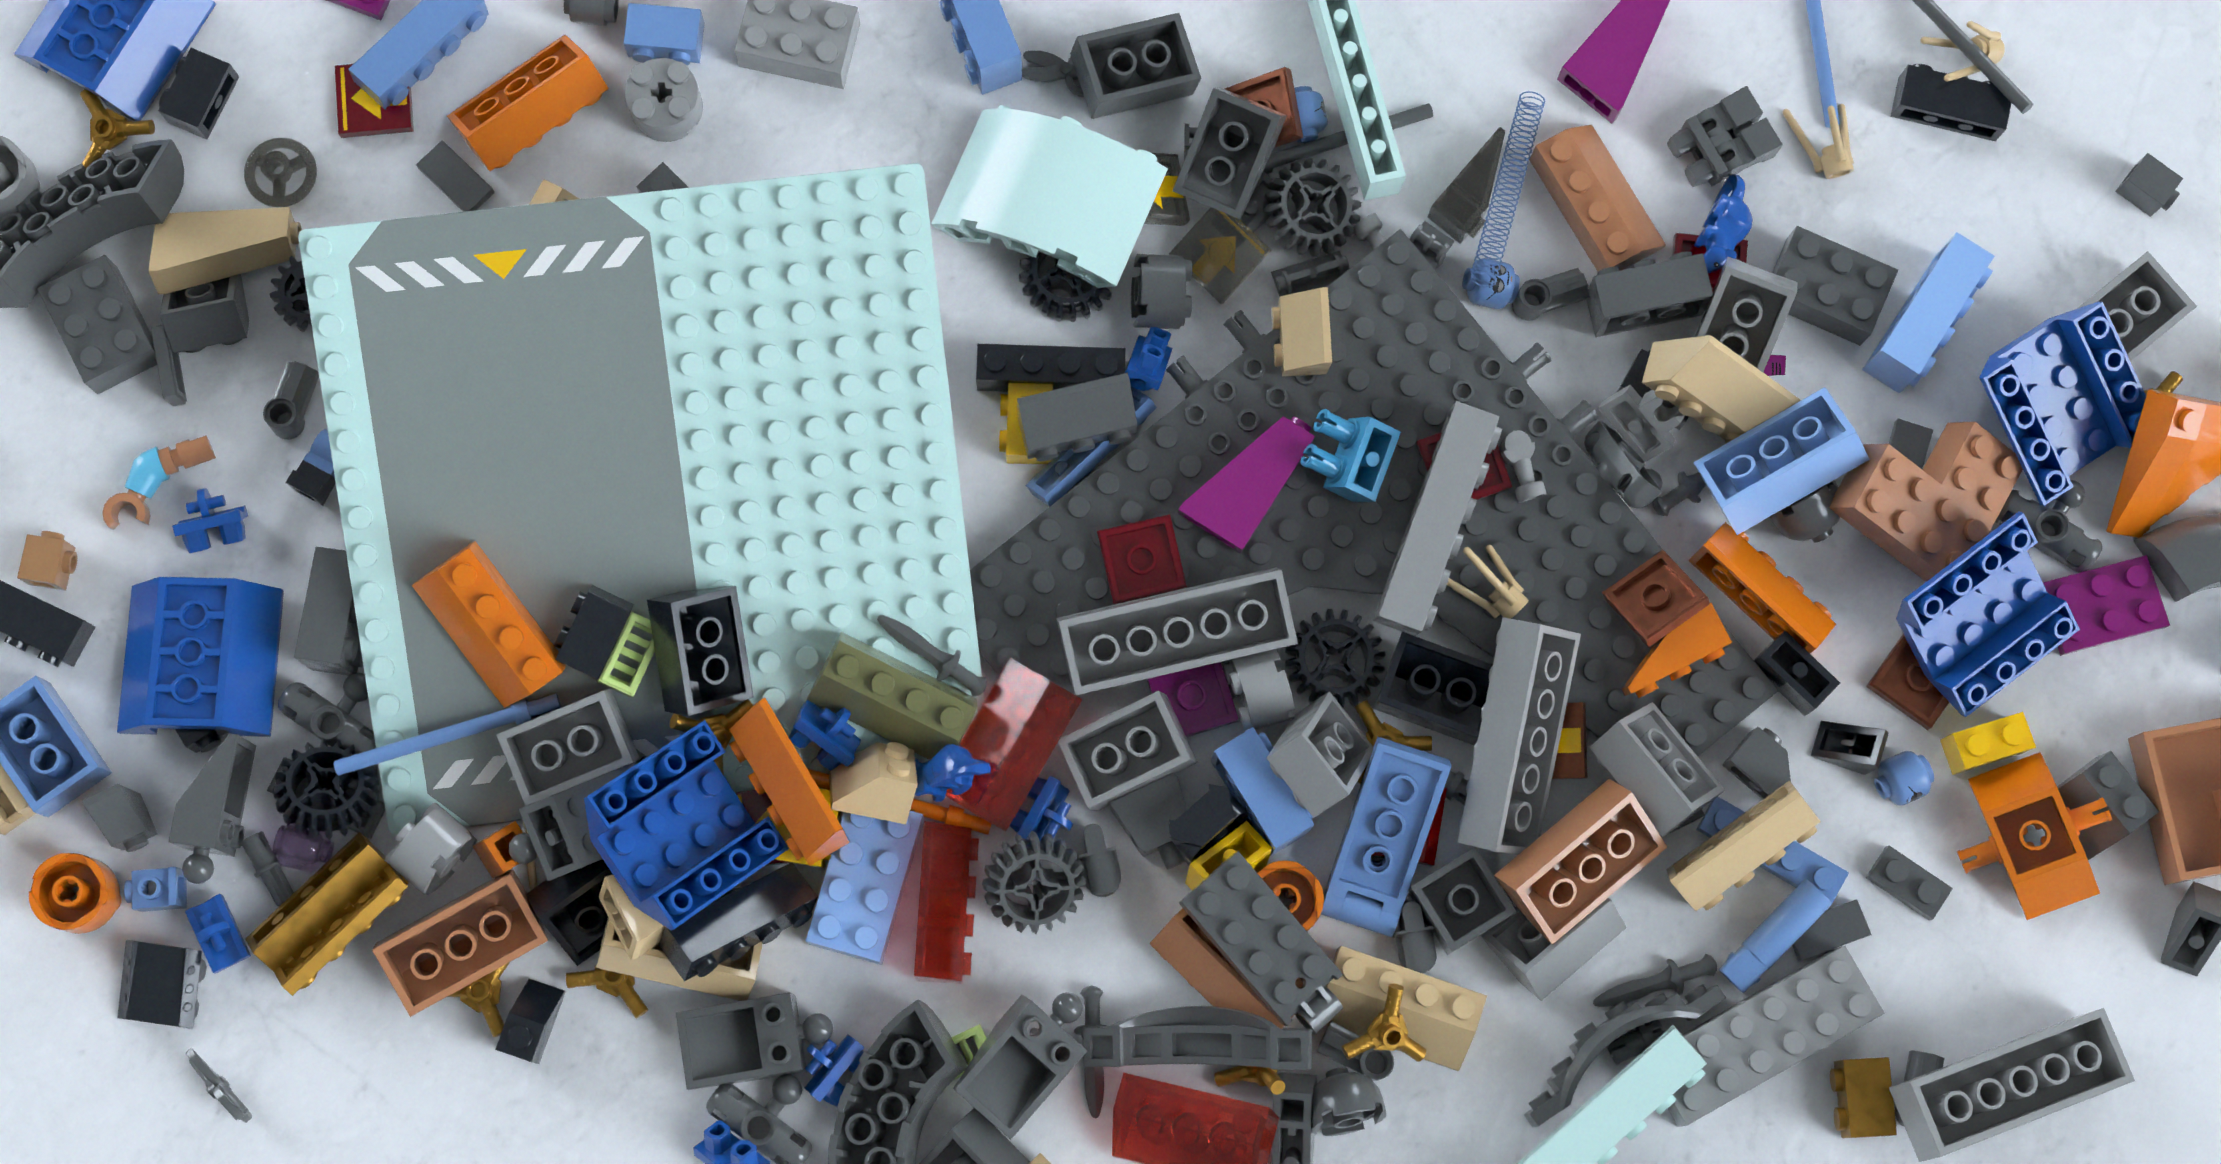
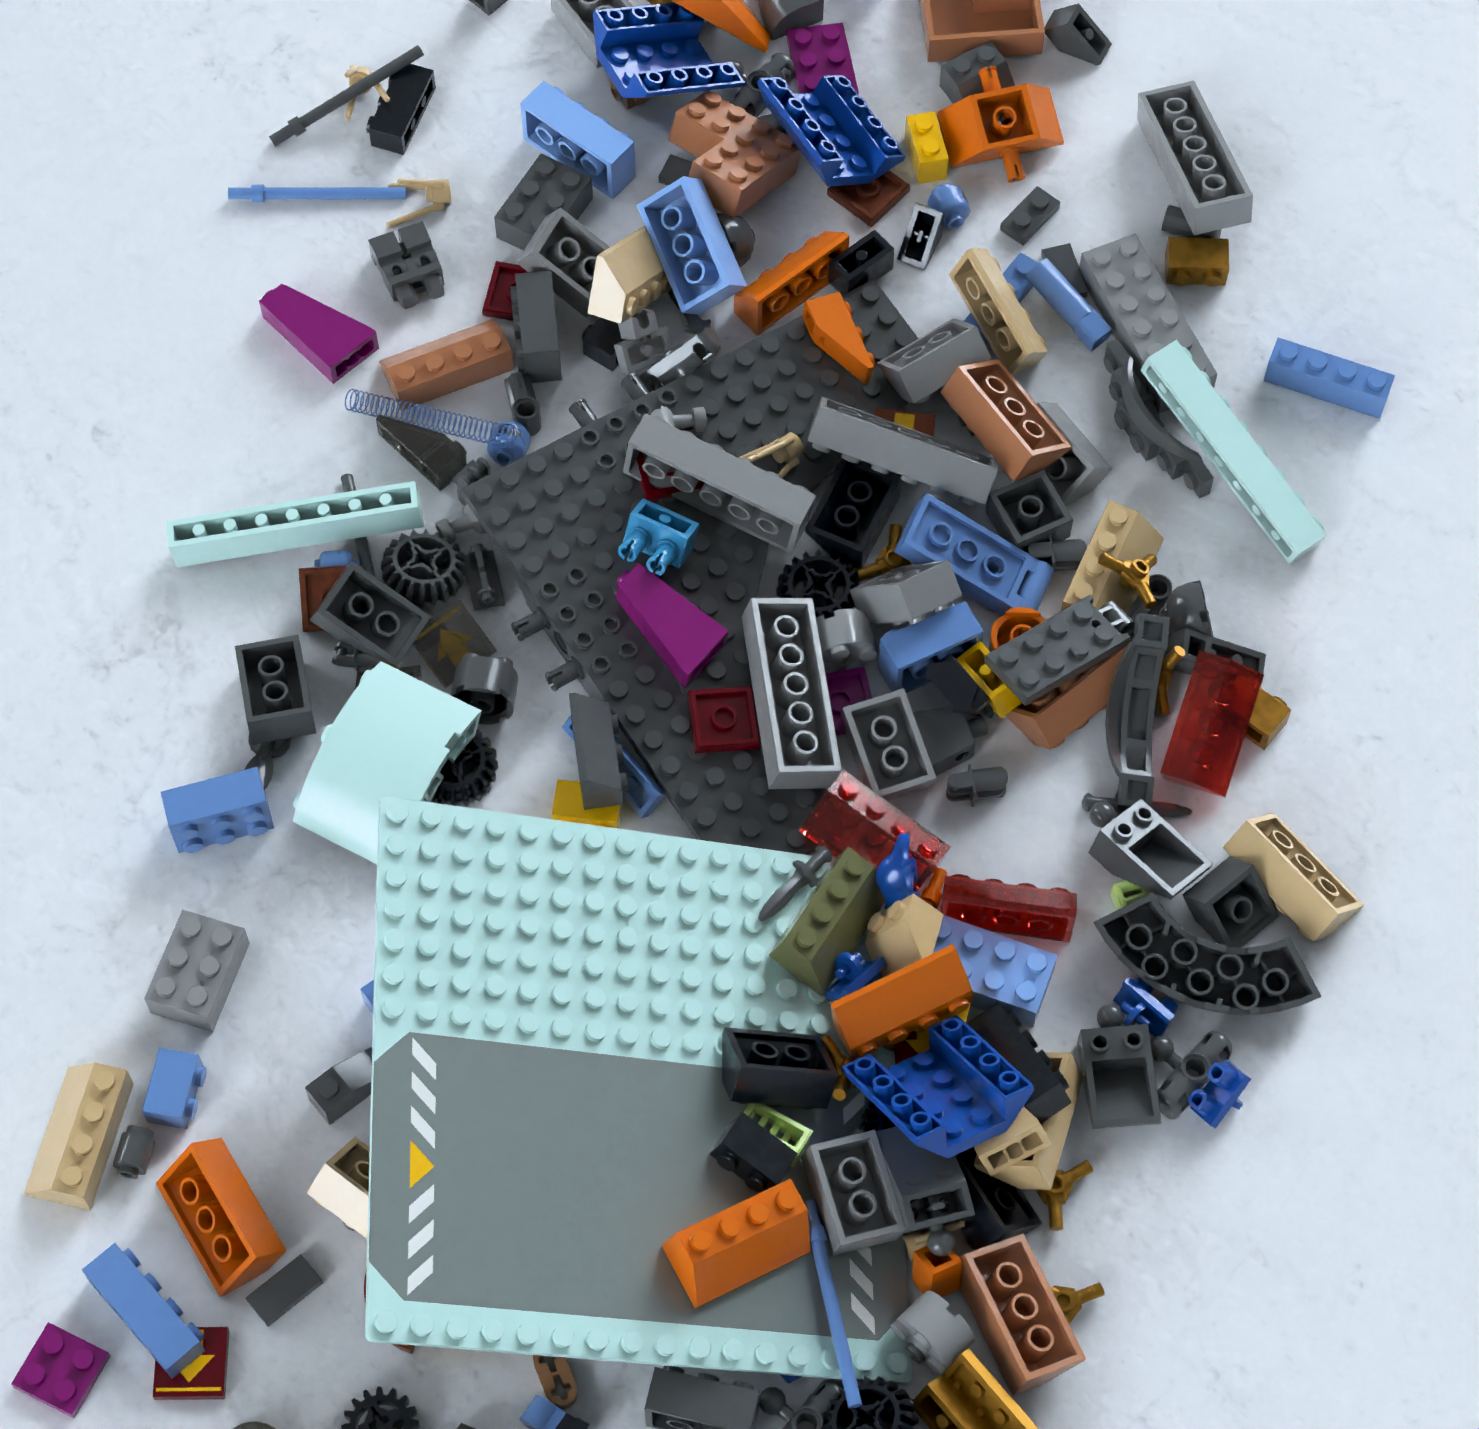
camera: 80 degrees left, 15 degrees down
(531, 1021) = (1092, 1260): black slope -> none
(667, 80) = (256, 1092): light grey brick -> none
(1004, 880) = (1000, 826): dark grey gear -> none
(1044, 365) = (543, 767): black brick -> none
(1047, 811) = (933, 822): blue hips -> none
(1149, 360) = (543, 704): blue hips -> none
(1303, 333) = (548, 558): tan slope -> none
(1655, 598) = (797, 341): copper tile -> none
(1670, 978) = (1097, 384): dark grey sword -> none
(1725, 224) = (480, 271): blue animal -> none
(1760, 762) = (930, 300): dark grey slope -> none

